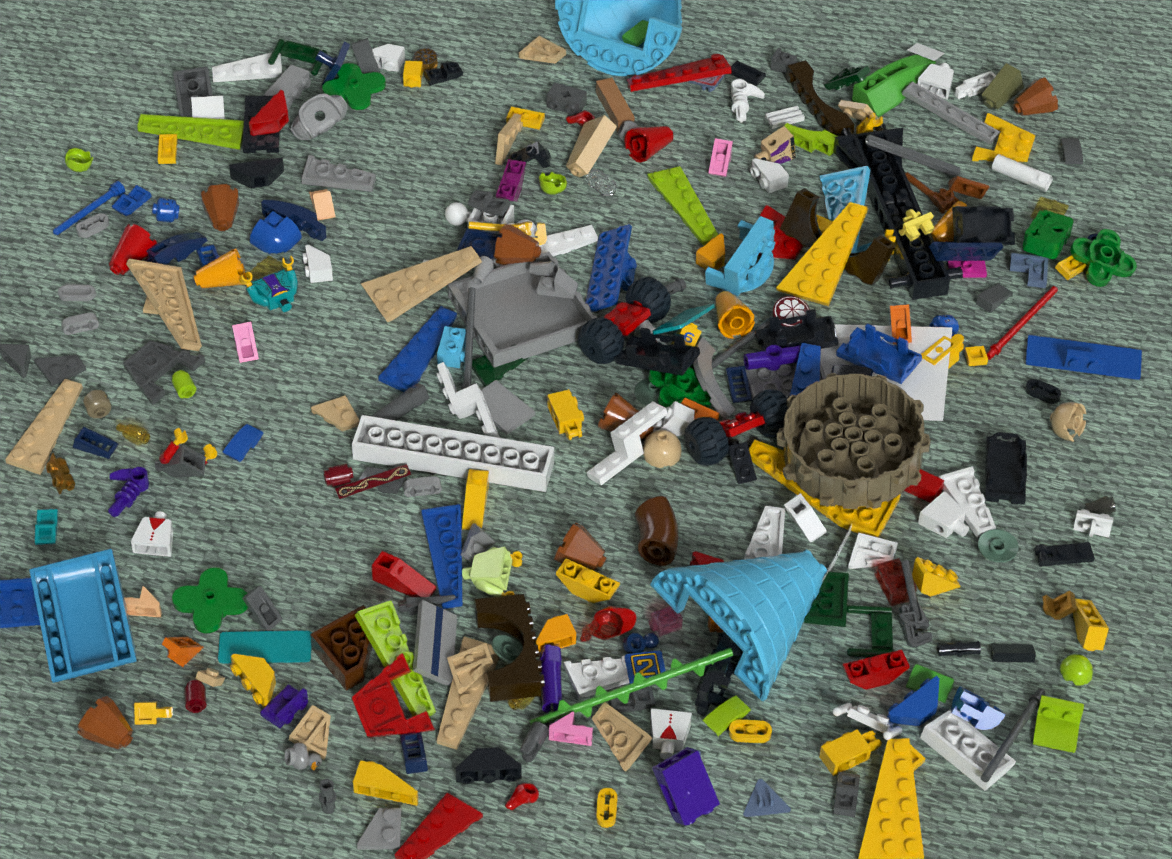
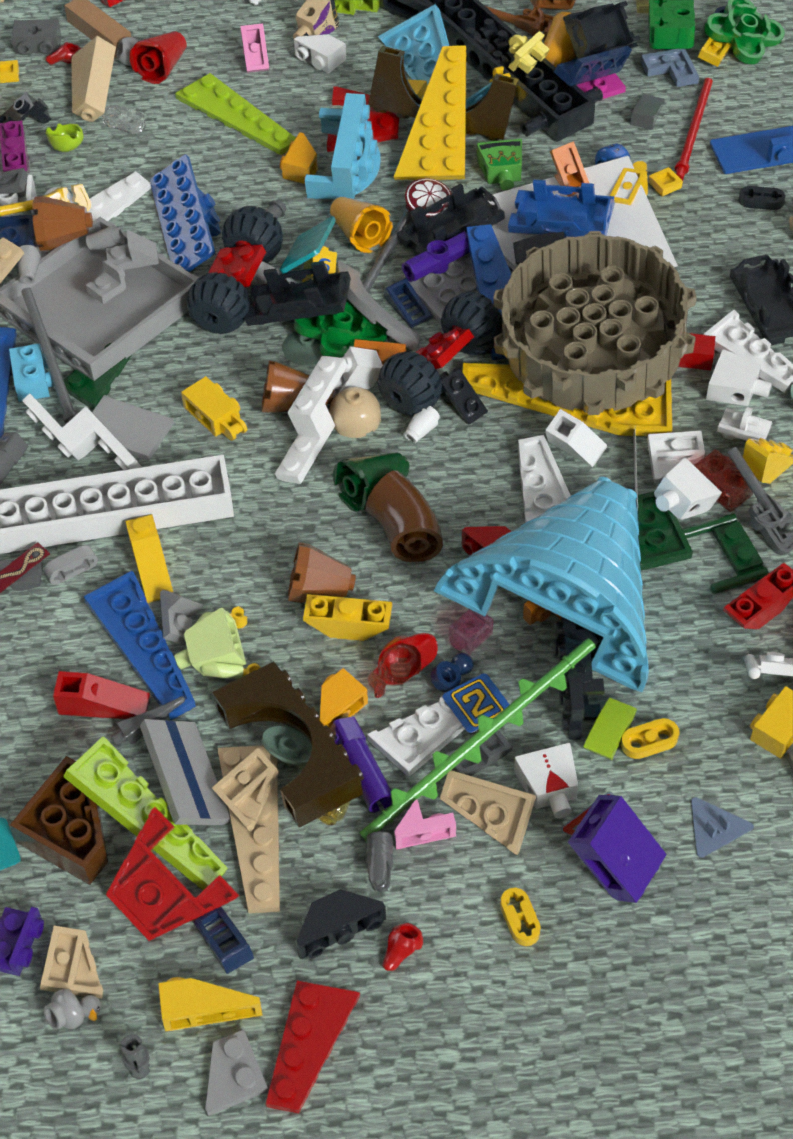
camera: 20 degrees left, 5 degrees up
(531, 302) = (107, 284): none -> light grey bracket
(642, 490) = (361, 475): none -> dark green cone
(704, 472) = (421, 424): none -> white cone
(861, 302) = (501, 162): none -> bright green torso
(861, 580) = (686, 491): none -> white torso
(930, 549) = (743, 425): none -> white hips

